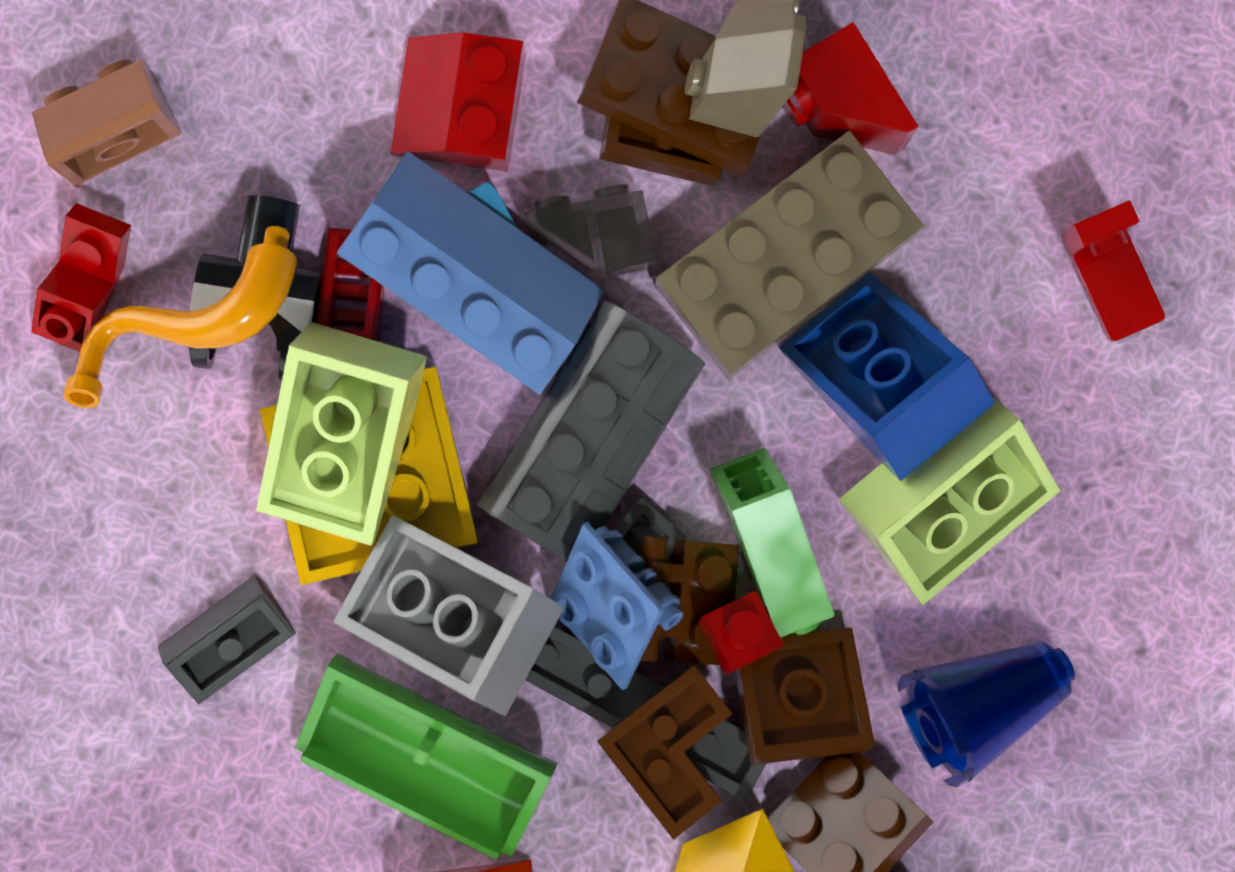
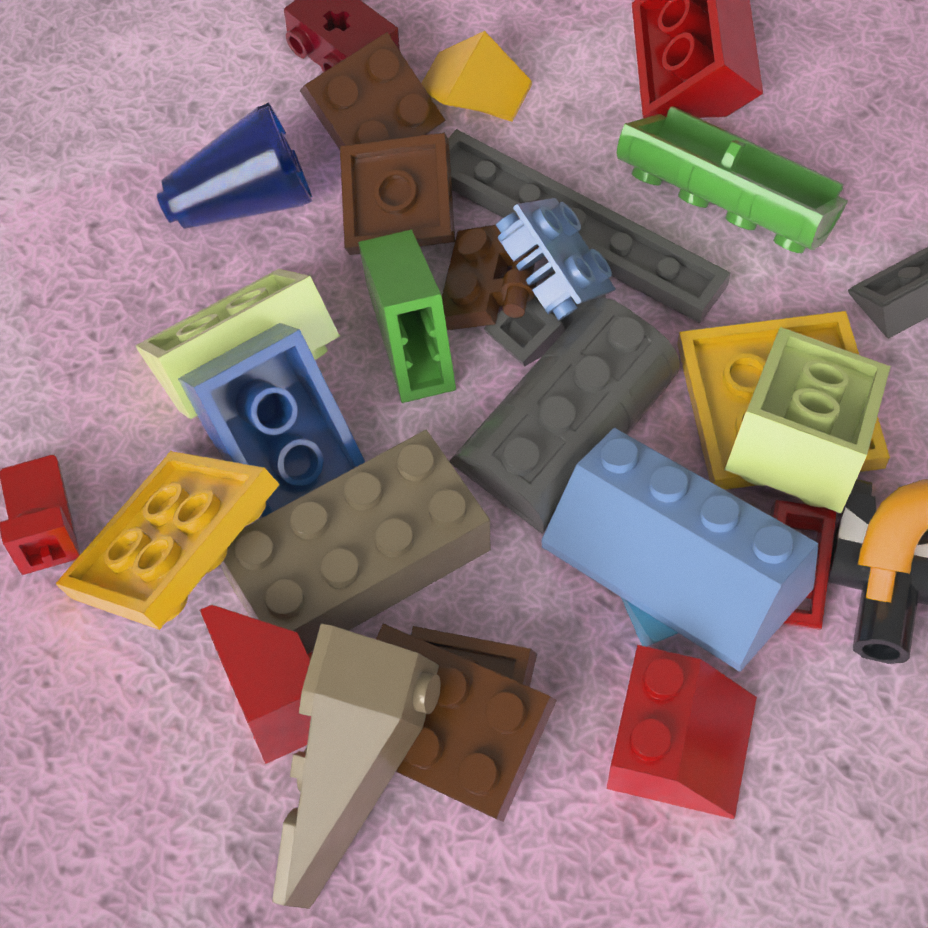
camera: 175 degrees left, 25 degrees down
(449, 615) = (710, 260): light grey slope -> none
(597, 235) = (546, 586): clear smoke slope -> none
(652, 748) = (527, 158): reddish brown plate -> none
(740, 633) = (444, 232): red plate -> none
(973, 233) = (168, 537): none -> yellow plate

